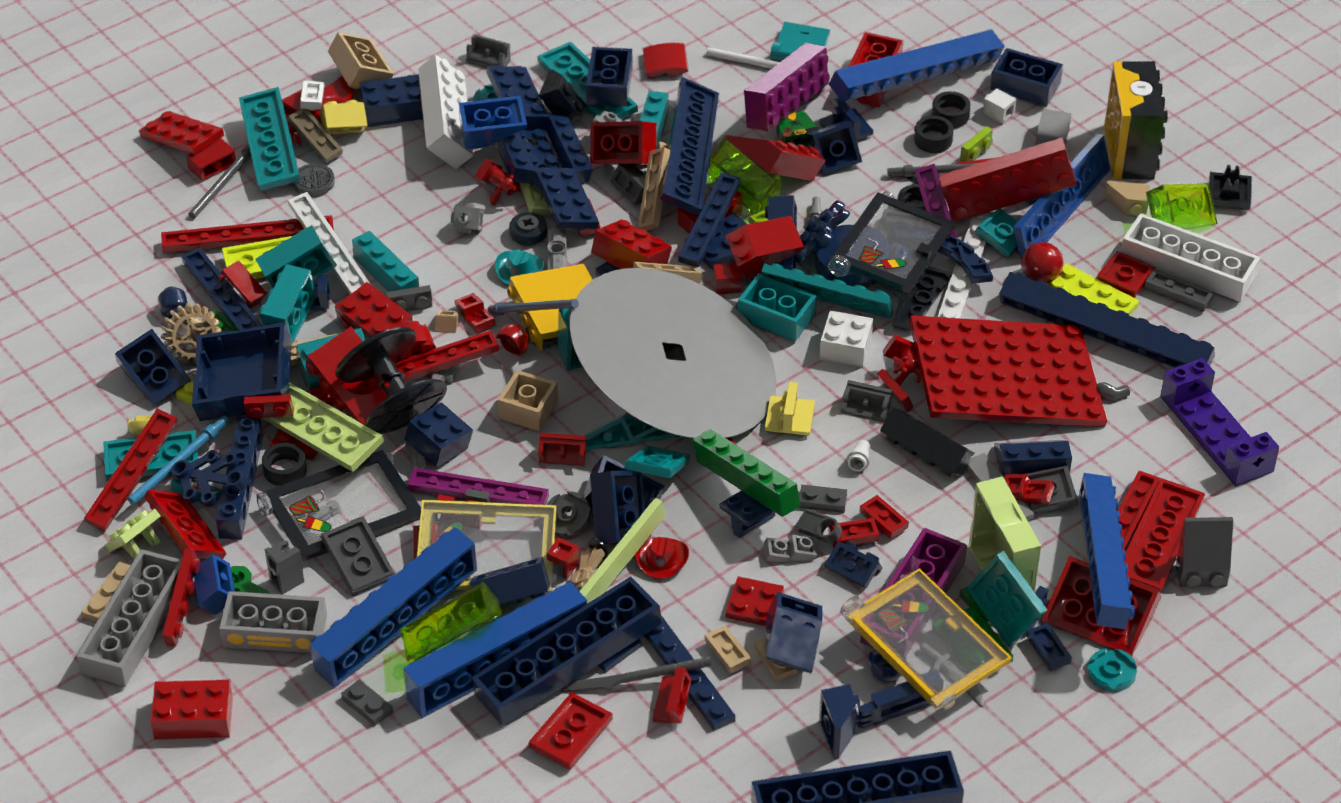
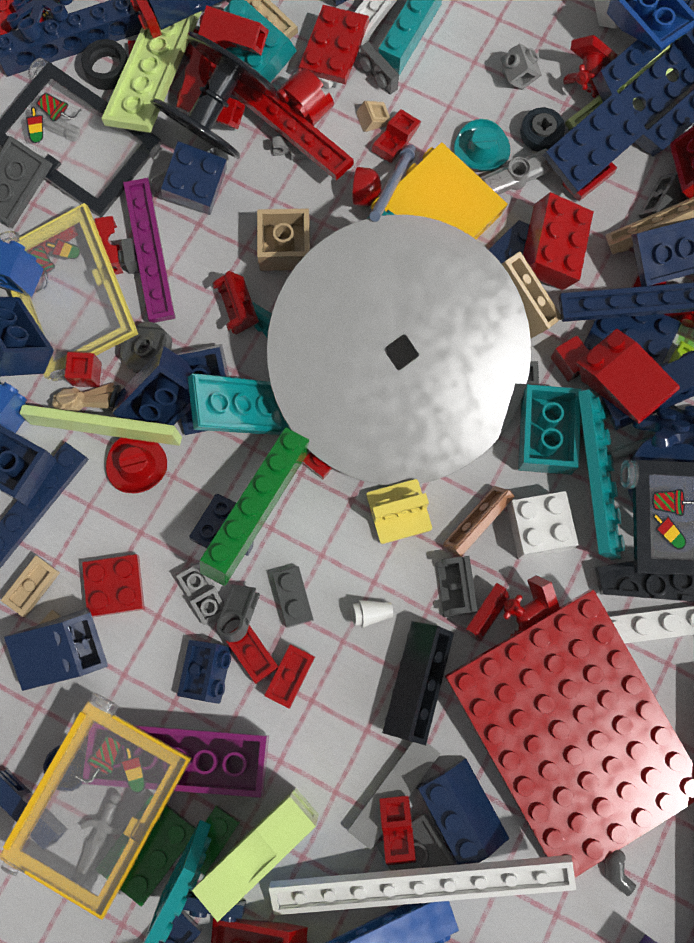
camera: 65 degrees right, 30 degrees up
(823, 372) = (478, 520): none -> nougat tile
(1070, 481) = (423, 885): none -> white plate

